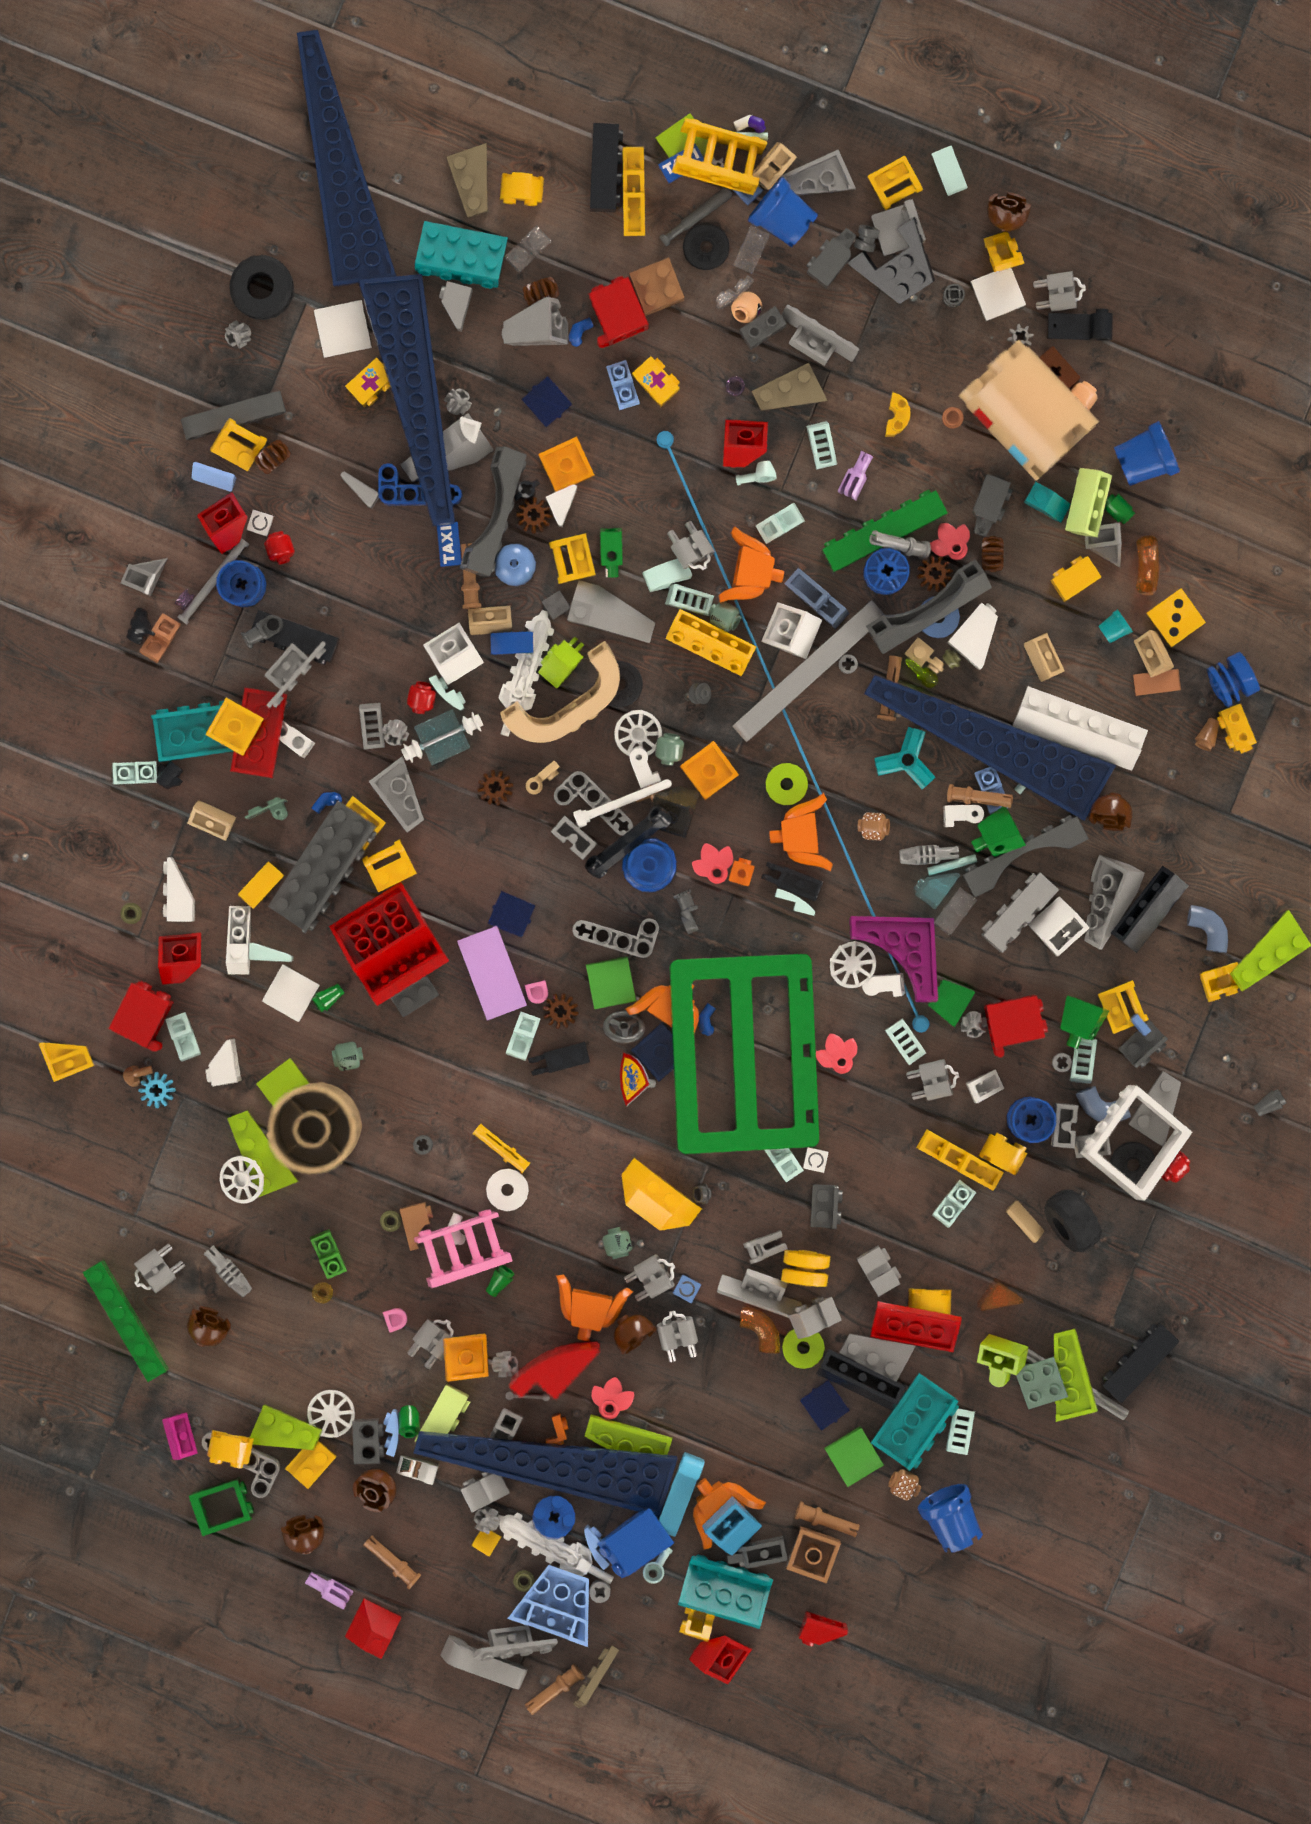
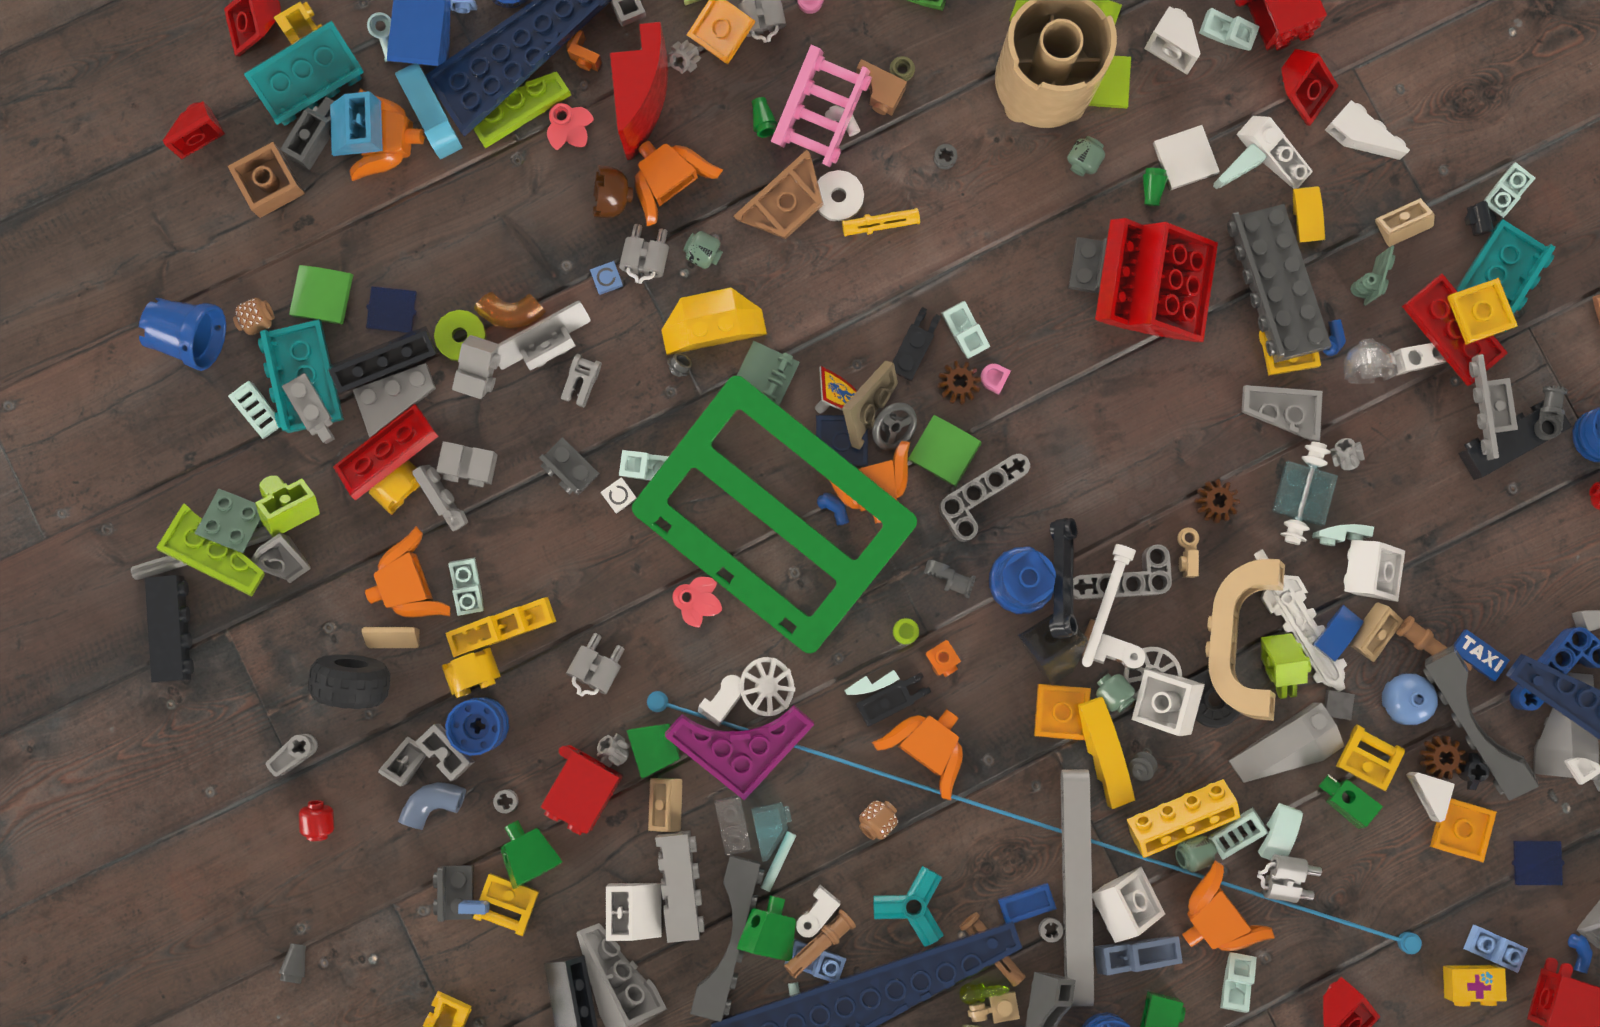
camera: 130 degrees right, 5 degrees down
(124, 913) = (1384, 72): olive plate -> none
(325, 768) = (1368, 362): none -> clear cylinder
(367, 708) = (1384, 437): light grey slope -> none
(392, 872) = (1217, 343): yellow plate -> none
(421, 697) = (1359, 505): red head -> none
(492, 973) = (1048, 351): lavender tile -> none
(511, 914) = (1085, 416): clear blue piece -> none
(540, 1219) = (785, 200): none -> medium nougat wing
(581, 842) = (1098, 534): light grey brick -> none
(626, 1057) = (871, 396): none -> dark tan wing
(648, 711) = (1168, 702): none -> white slope
(658, 1135) = (768, 370): none -> sand green hinge
(676, 1334) = (573, 232): light grey piece -> none
(711, 723) = (1106, 752): none -> yellow slope
(711, 860) = (976, 642): coral plate -> none
(743, 909) = (905, 631): none -> lime tile
(763, 473) = (1298, 1008): light aqua bar -> none
(791, 796) = (987, 788): lime tile -> none
(806, 1265) = (527, 397): yellow wheel -> none
(817, 1517) = (297, 214): medium nougat pin -> none
(845, 691) = (1027, 903): none -> blue tile
(901, 1023) = (674, 679): light aqua slope -> none
(914, 1268) = (439, 496): none -> light grey hinge
(927, 854) = (807, 847): light grey hinge -> none
(929, 1397) = (310, 407): none -> light grey hinge
(978, 963) = (665, 804): none -> tan slope
(984, 1086) = (547, 709): white slope -> none
(986, 1243) = (403, 583): none -> orange torso
(998, 1296) = (343, 551): clear orange slope -> none
(1037, 1331) = (281, 558): none -> light grey slope
(1083, 1078) = (469, 812): light aqua slope -> none
(1130, 1151) = (337, 778): black wheel -> none
(1149, 1218) = (290, 755): none -> light grey piece
(1162, 1160) = (330, 814): white window -> none
(1165, 1093) = (384, 852): light grey wing -> none

